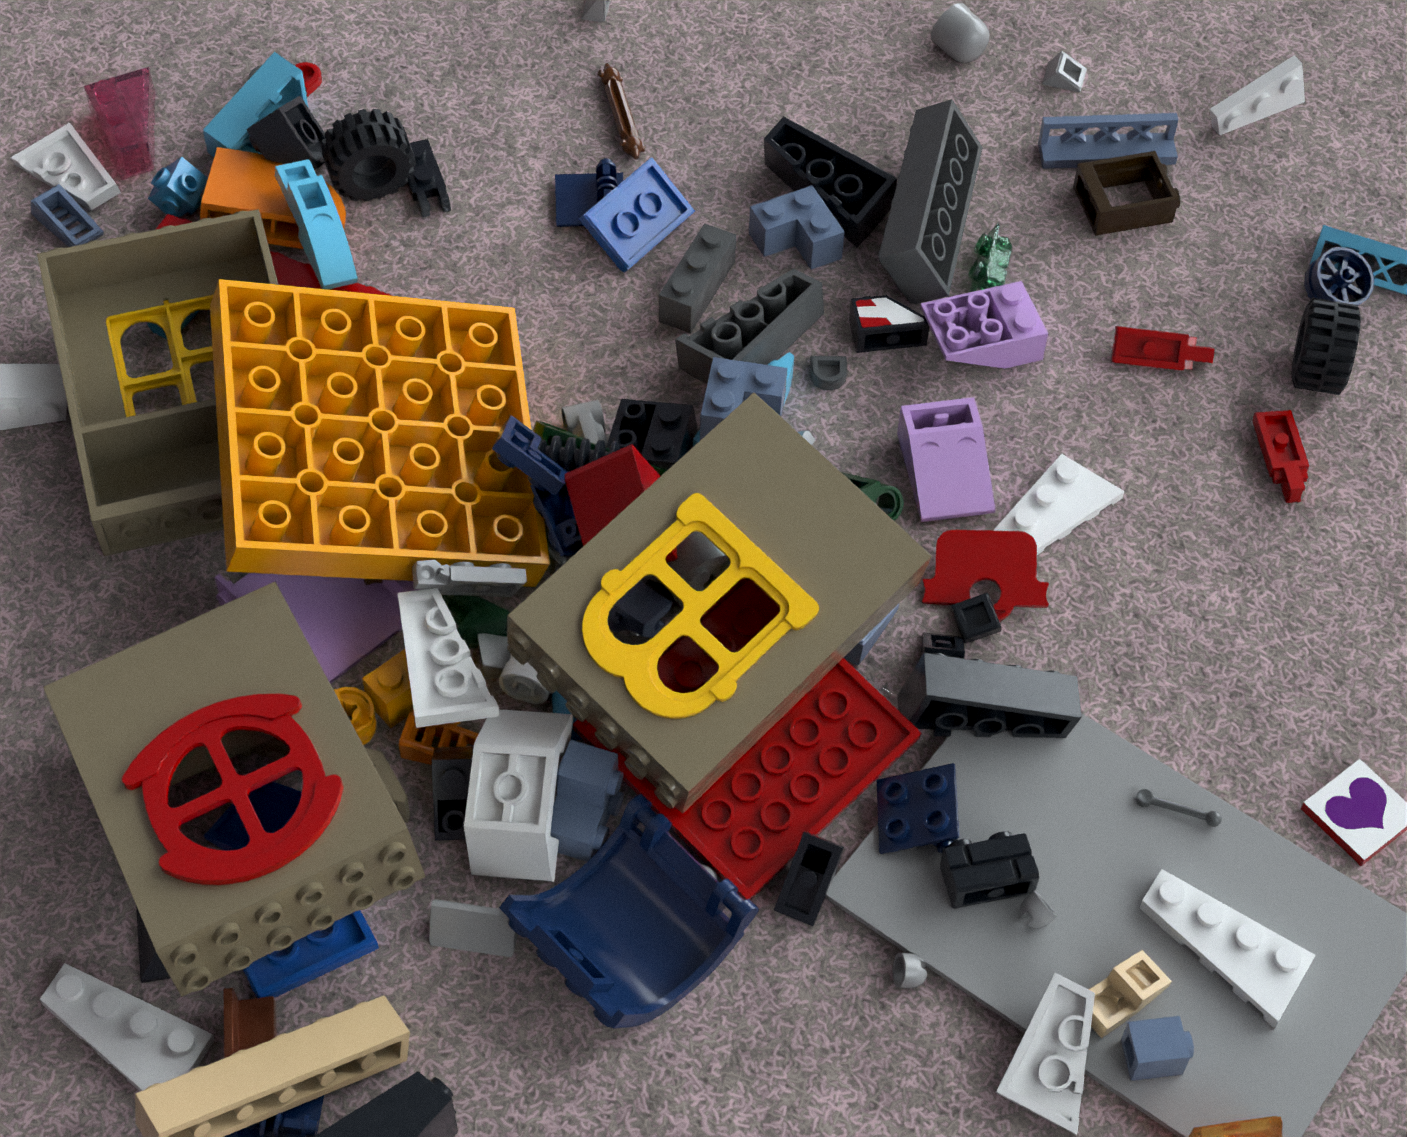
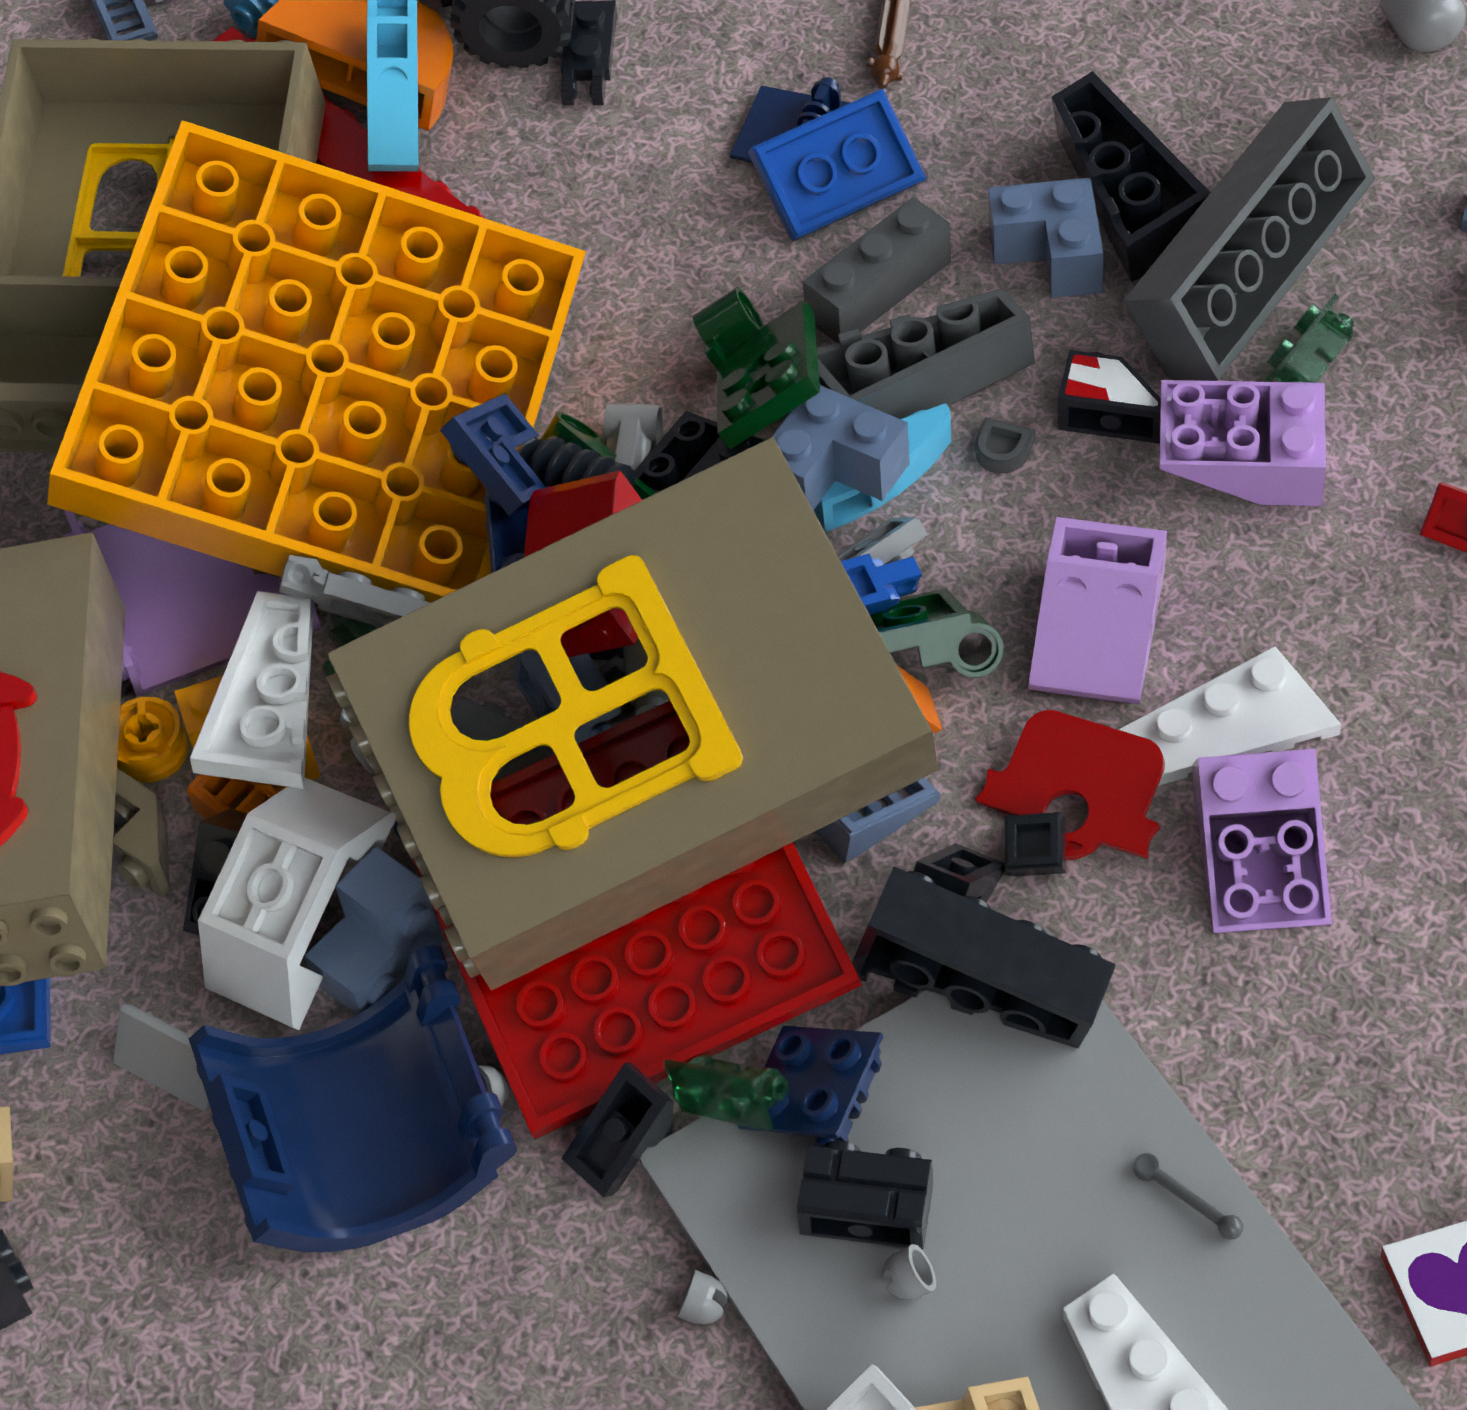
camera: 30 degrees right, 0 degrees up
(664, 358) = (758, 366): none -> dark green hinge
(869, 834) = (725, 1091): none -> clear green hinge
(1113, 575) = (1262, 840): none -> lavender slope

